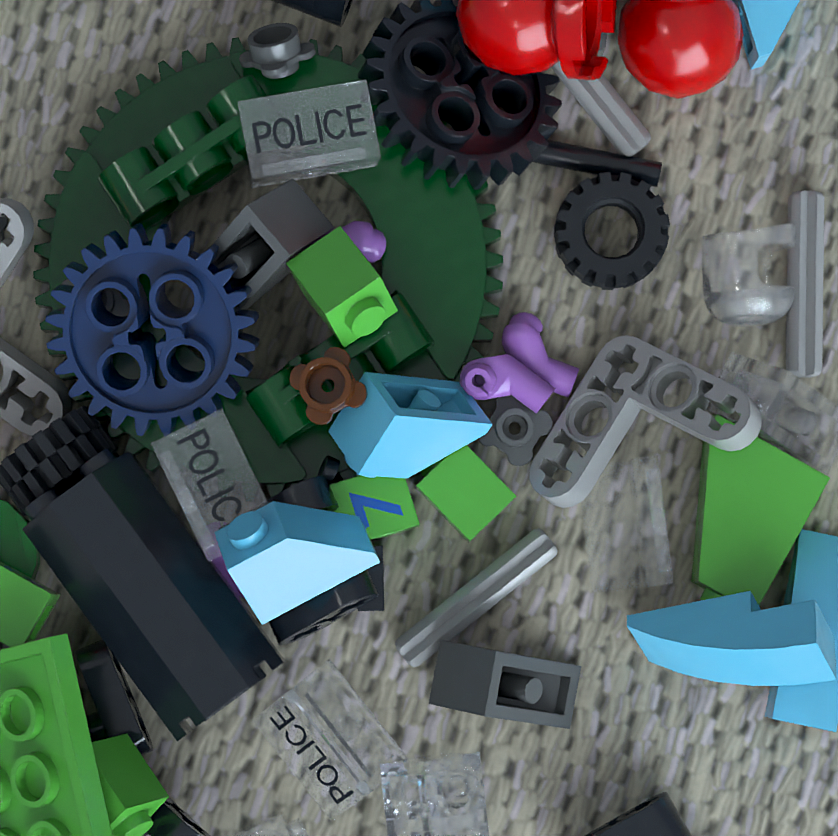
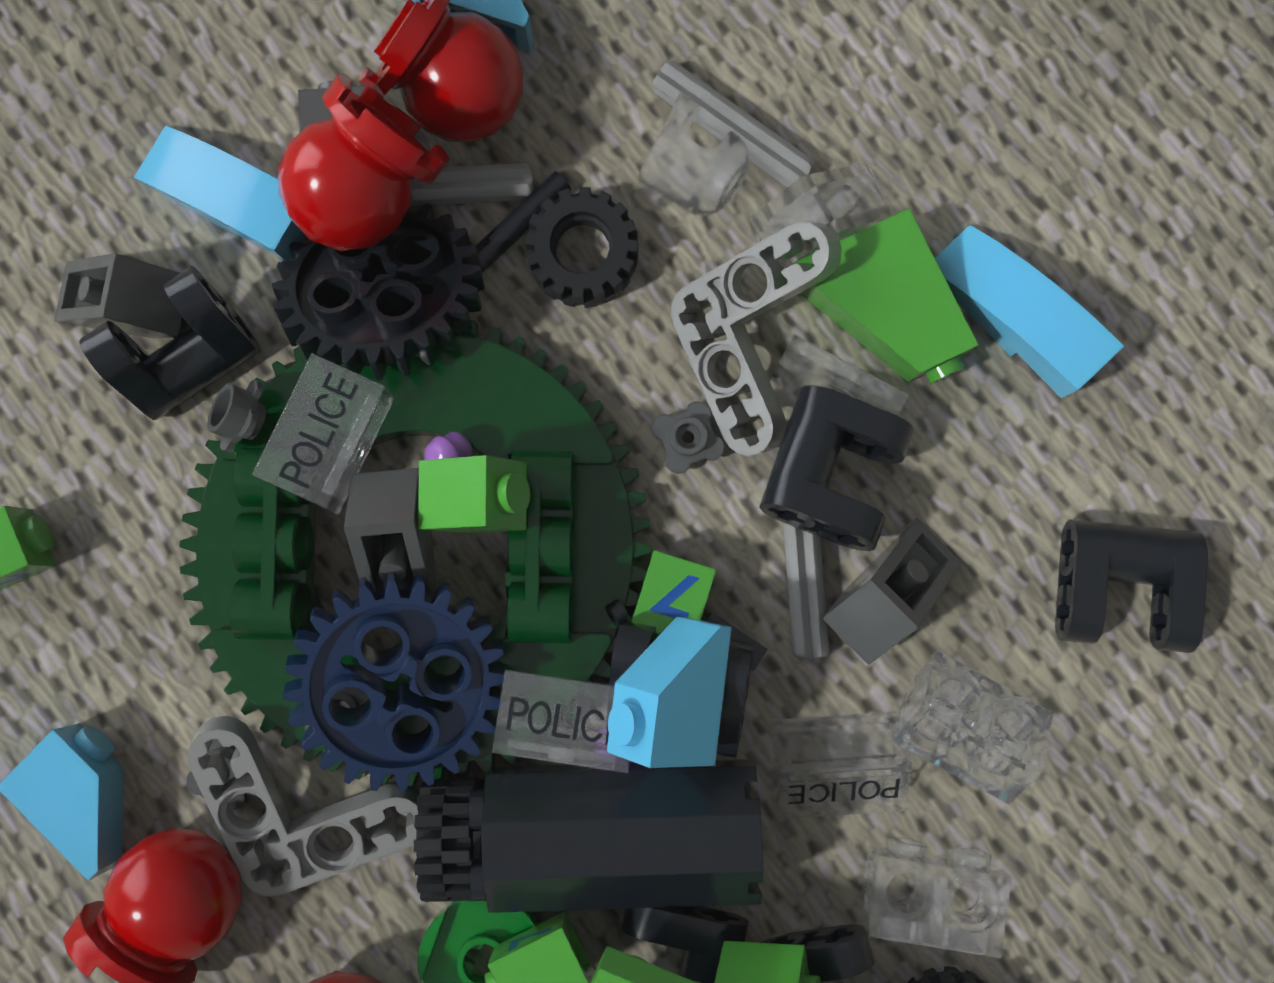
camera: 45 degrees left, 0 degrees up
(310, 378) = (535, 580): reddish brown plate -> none
(406, 425) = (625, 524): medium azure slope -> none
(464, 491) = (710, 513): bright green brick -> none
(502, 377) = (641, 415): medium lavender arm -> none
(523, 342) = (638, 385): medium lavender arm -> none
(566, 535) = (807, 456): none -> black connector
(738, 642) = (997, 374): medium azure slope -> none

